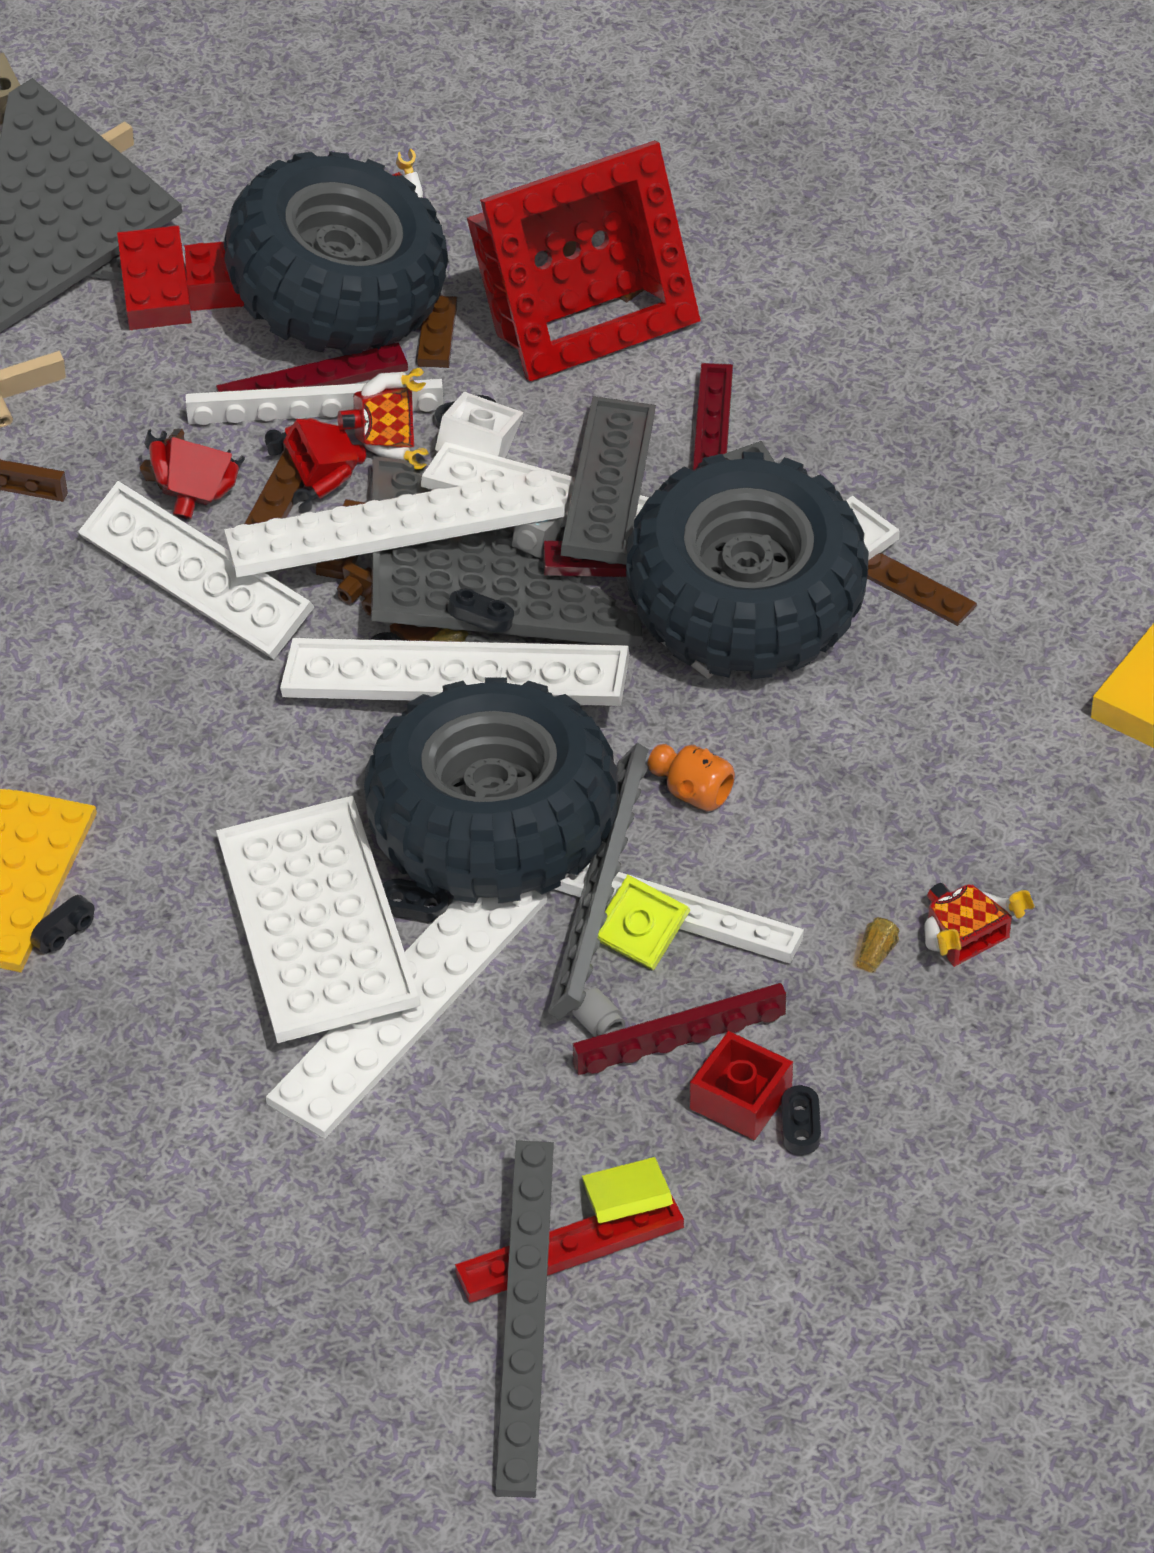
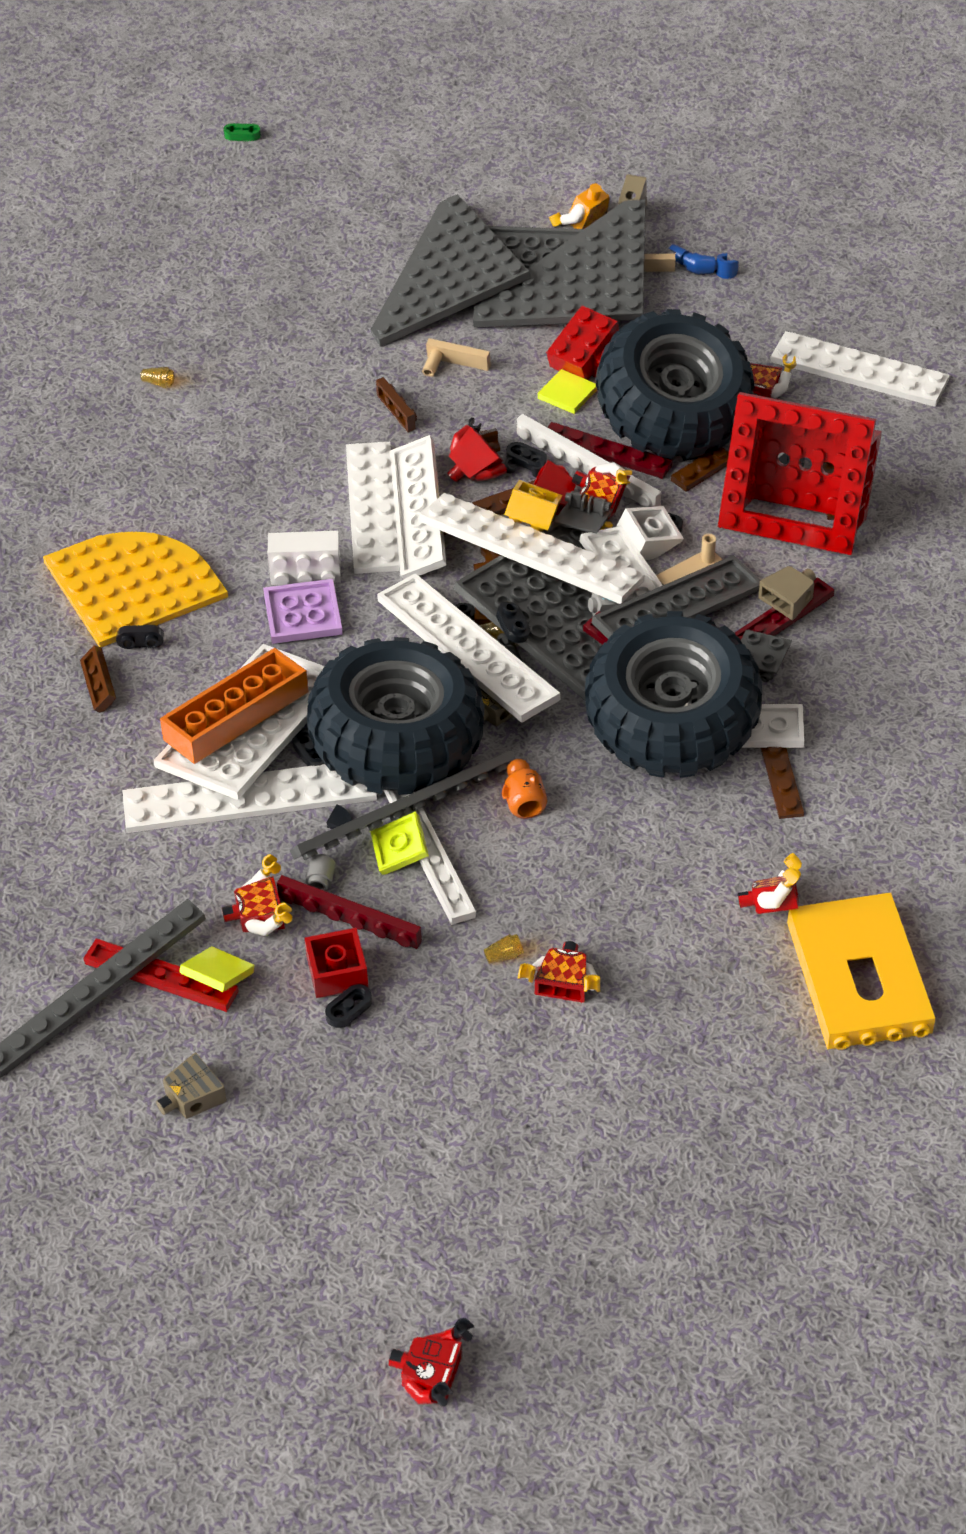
camera: 45 degrees right, 0 degrees up
(75, 1003) = (98, 679): none -> reddish brown plate
(135, 606) = (372, 508): none -> white plate
(148, 705) = (304, 557): none -> white brick
(164, 116) = (705, 264): none -> blue piece
(187, 343) = (567, 391): none -> neon yellow tile
(209, 767) = (302, 611): none -> lavender plate
(239, 438) = (524, 454): none -> black plate
(301, 908) = (234, 705): none -> orange brick
(342, 477) = (532, 505): none -> yellow brick
(394, 456) = (584, 514): none -> dark grey hinge
(468, 125) = (861, 368): none -> white plate
(540, 948) = (338, 817): none -> black tile
(562, 432) = (703, 559): none -> tan piece
(582, 1095) = (259, 902): none -> torso
(701, 393) = (788, 590): none -> dark tan torso
(760, 1326) = (191, 1089): none -> dark tan torso
(1065, 687) = (777, 892): none -> torso

